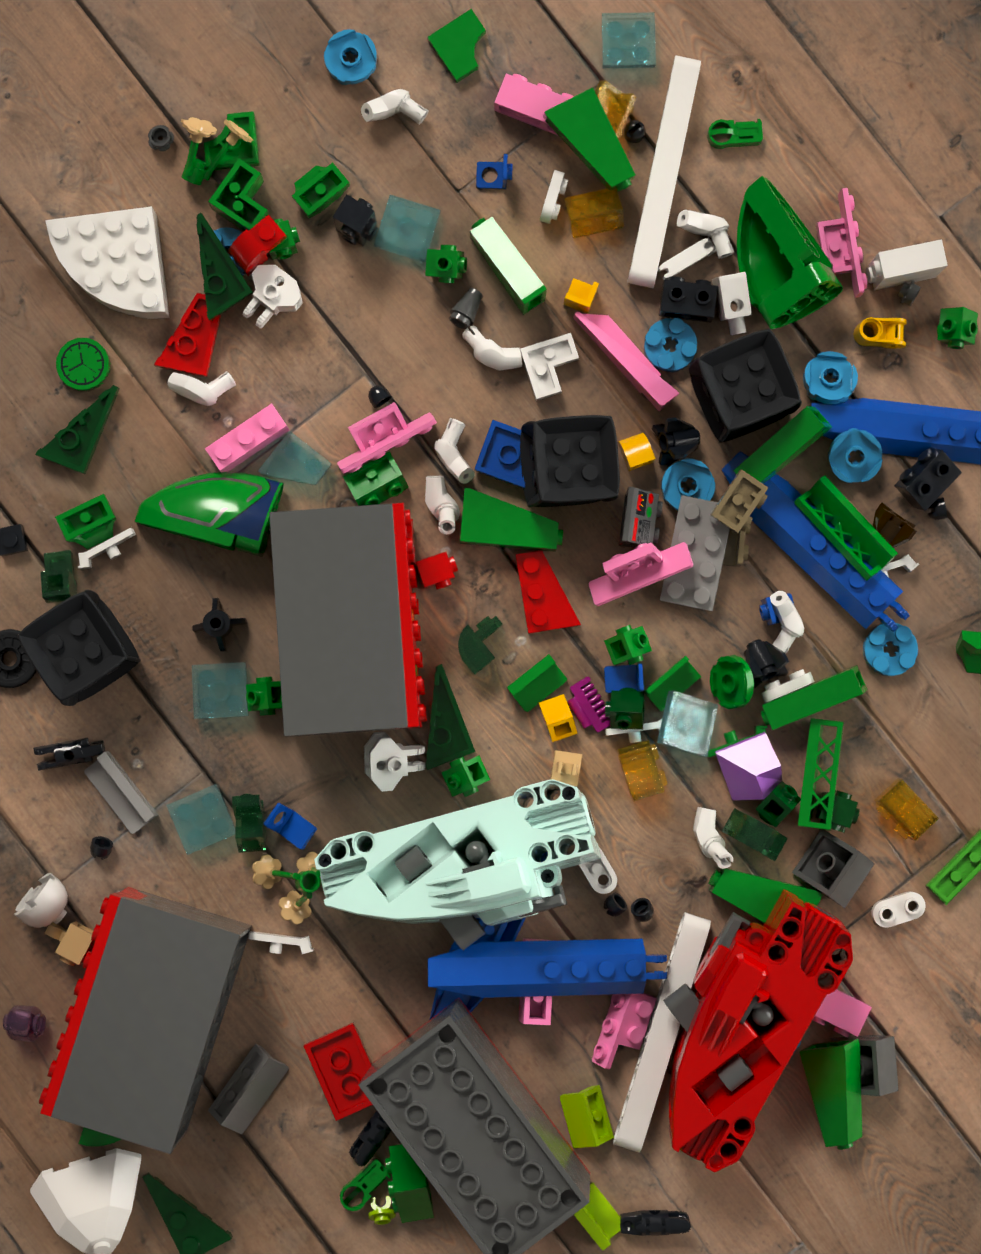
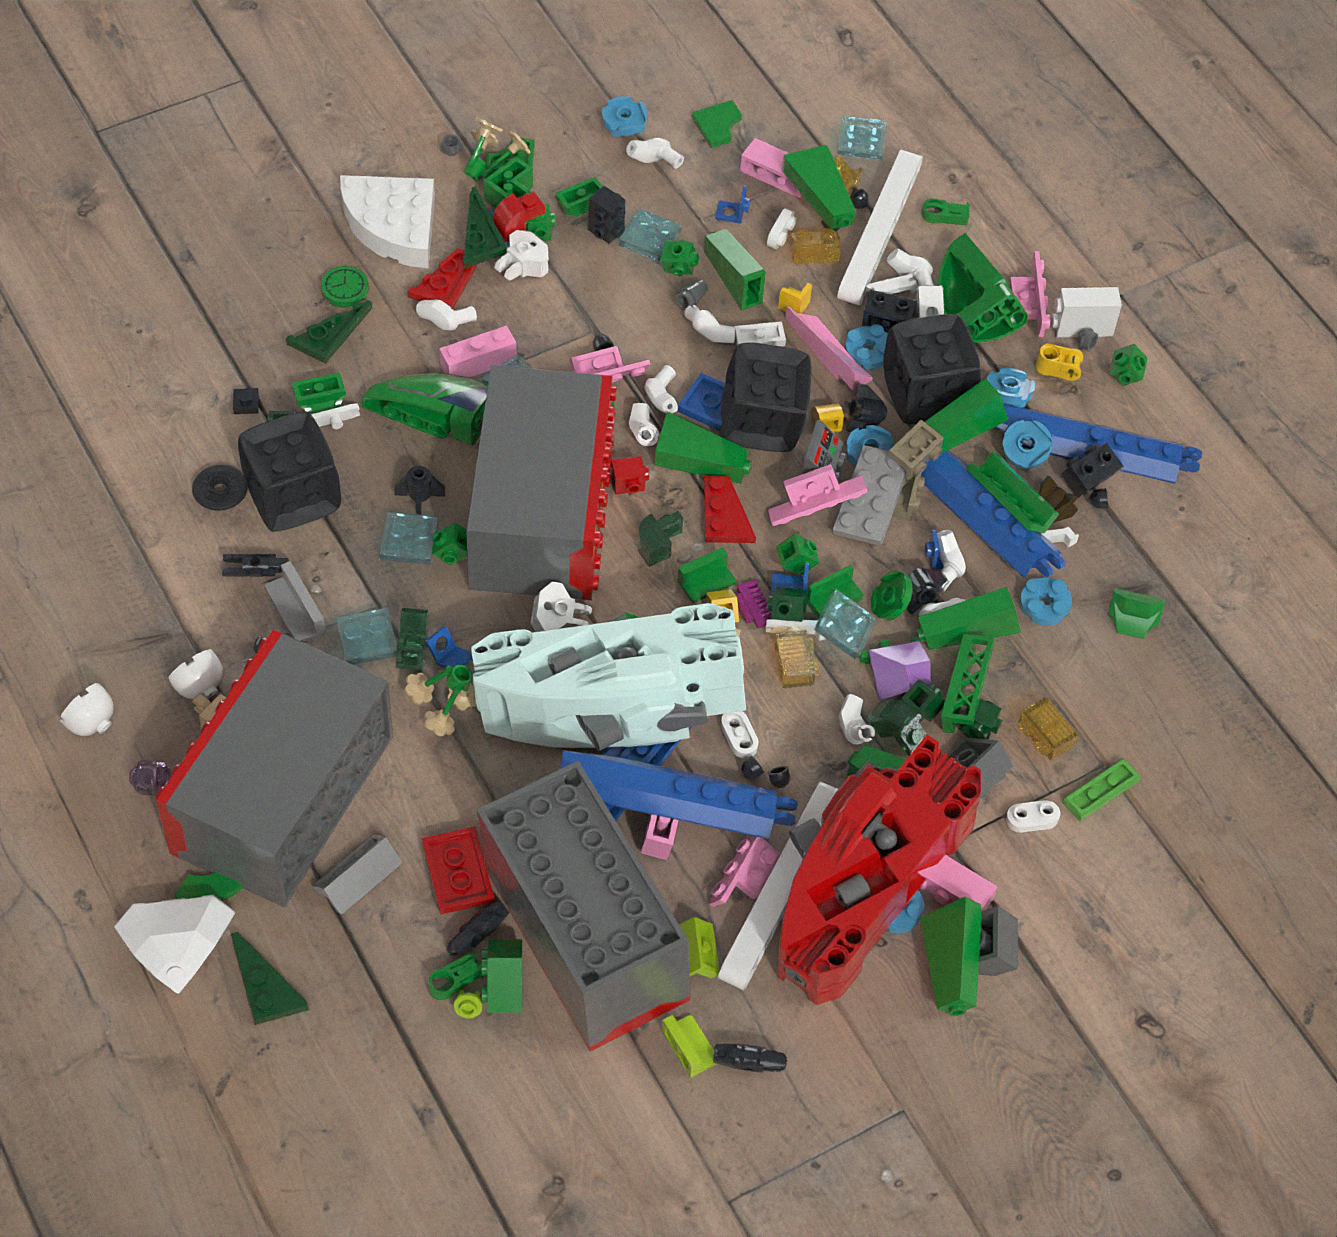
camera: 10 degrees right, 30 degrees down
(277, 940) = (415, 748): white piece -> none
(447, 731) = (616, 592): dark green wing -> none

